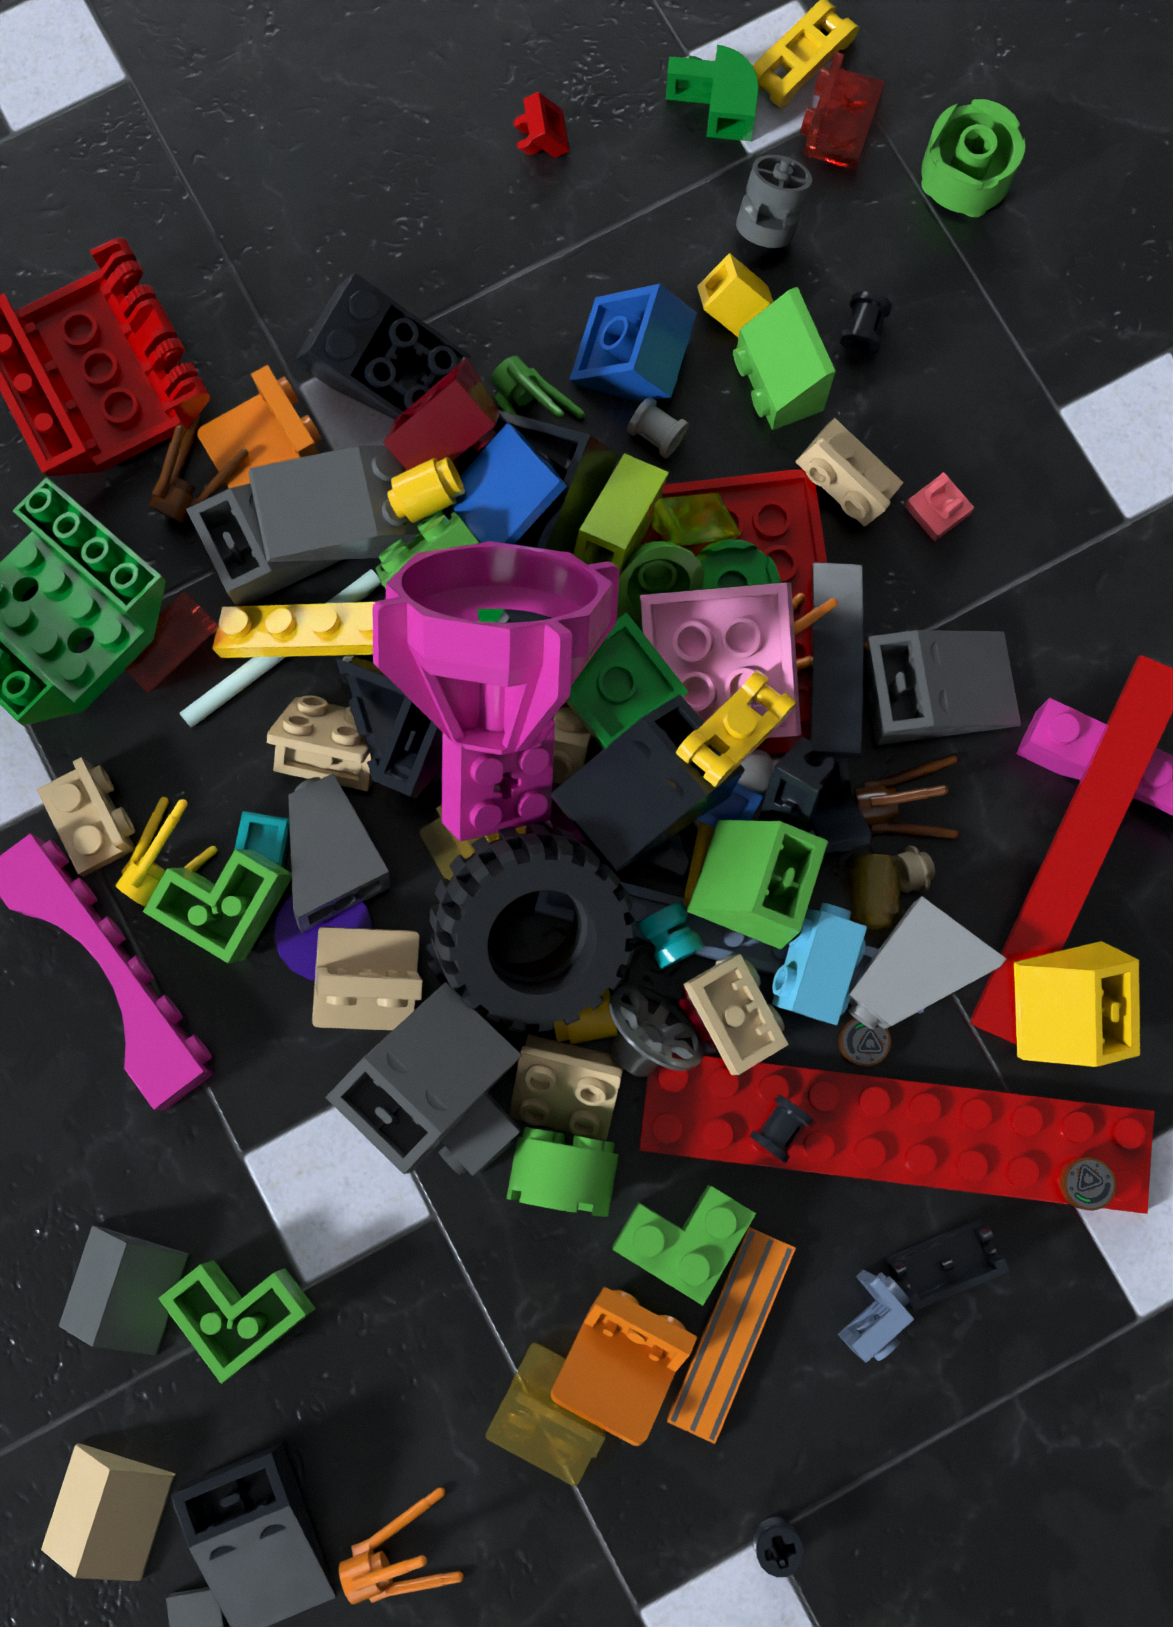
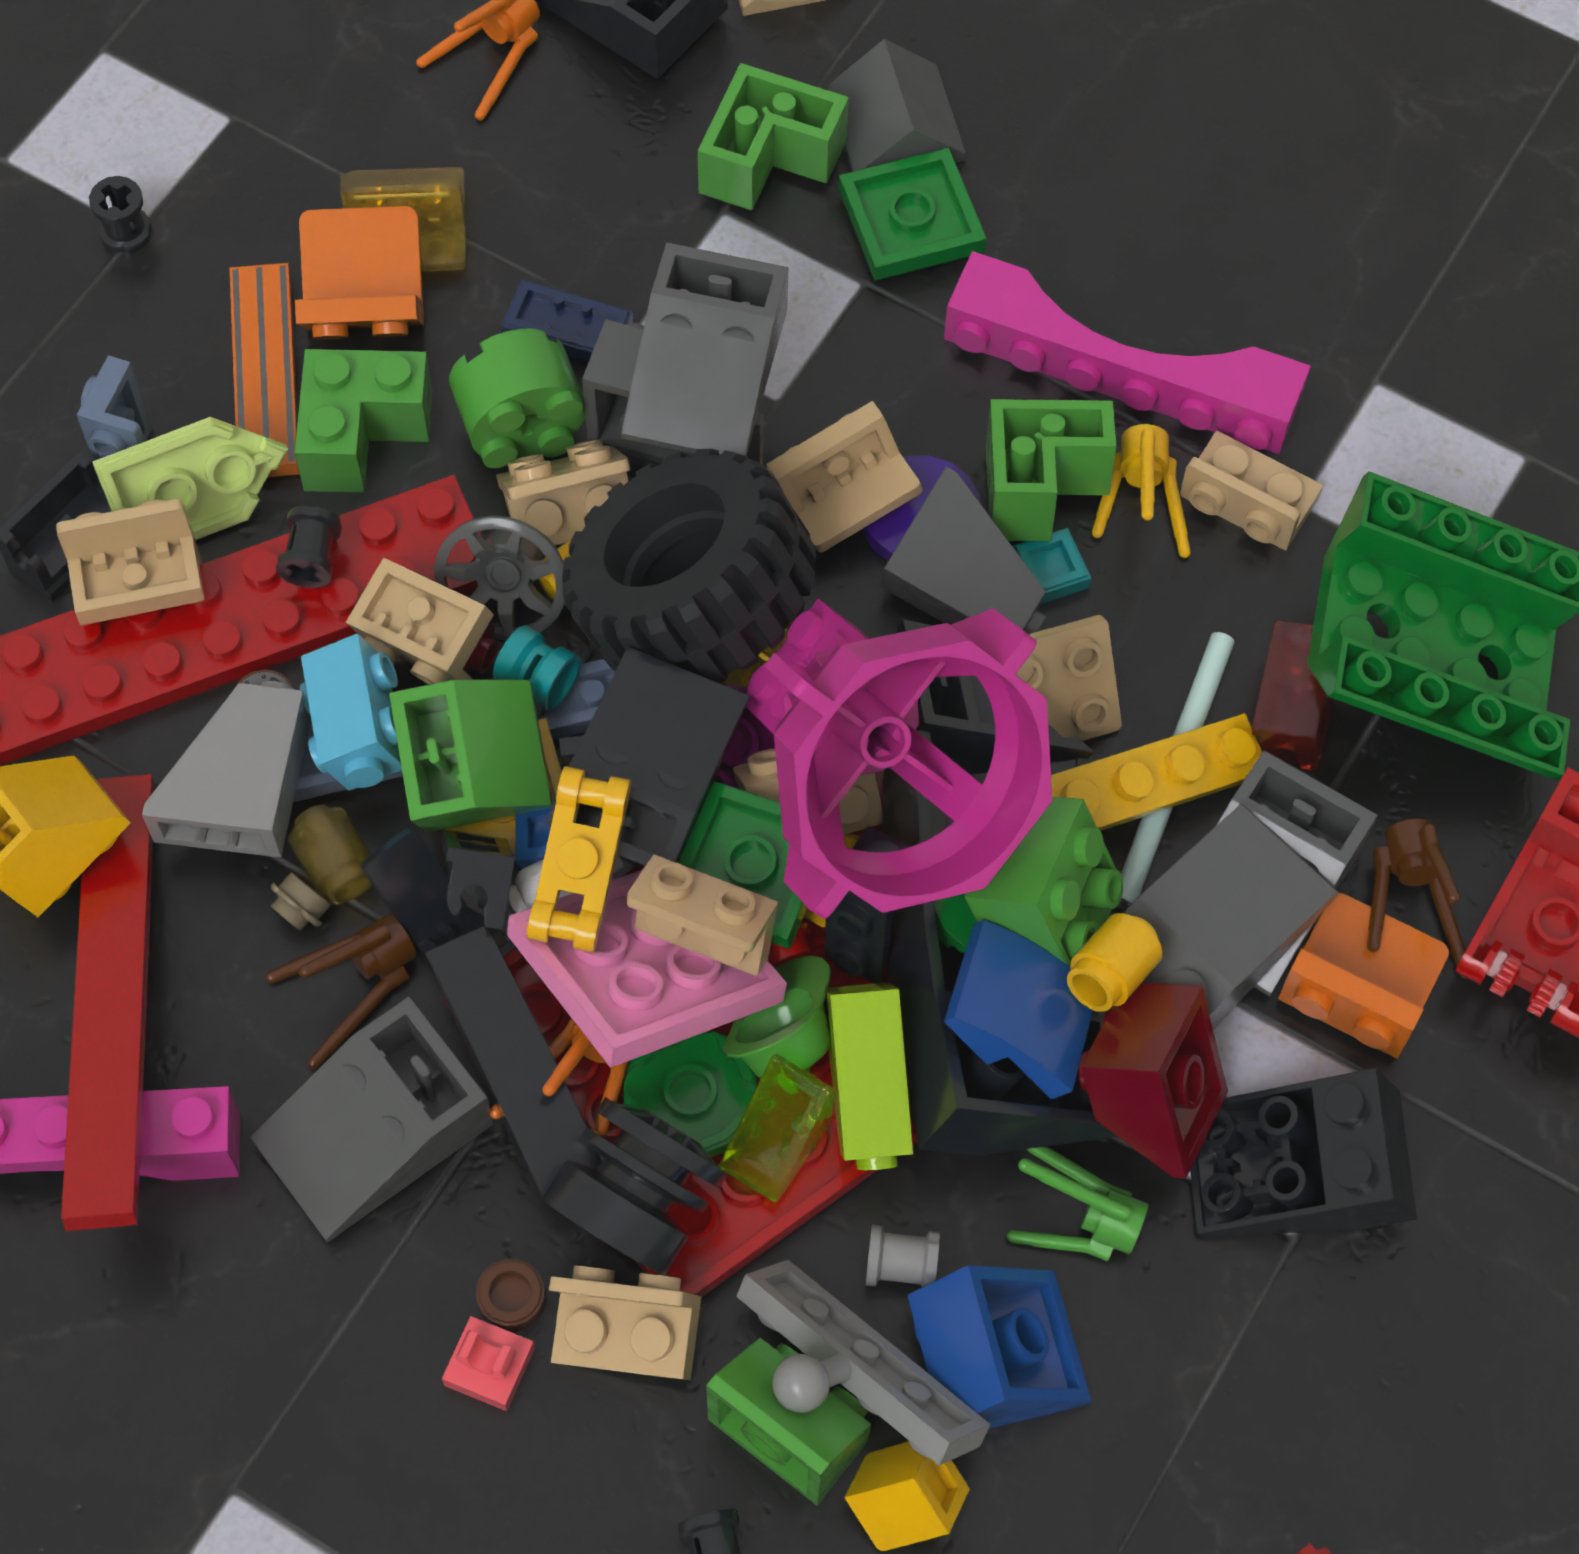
camera: 145 degrees right, 15 degrees down
(169, 1188) = (912, 214): none -> green plate
(485, 1238) = (563, 316): none -> dark blue plate
(676, 647) = (703, 914): none -> tan bracket
(726, 364) = (850, 1352): none -> light grey plate
(811, 516) = (635, 1185): none -> black wheel
(845, 1241) = (204, 464): none -> yellowish green tile
(904, 540) = (511, 1294): none -> reddish brown tile
(920, 1180) = (131, 561): none -> tan bracket

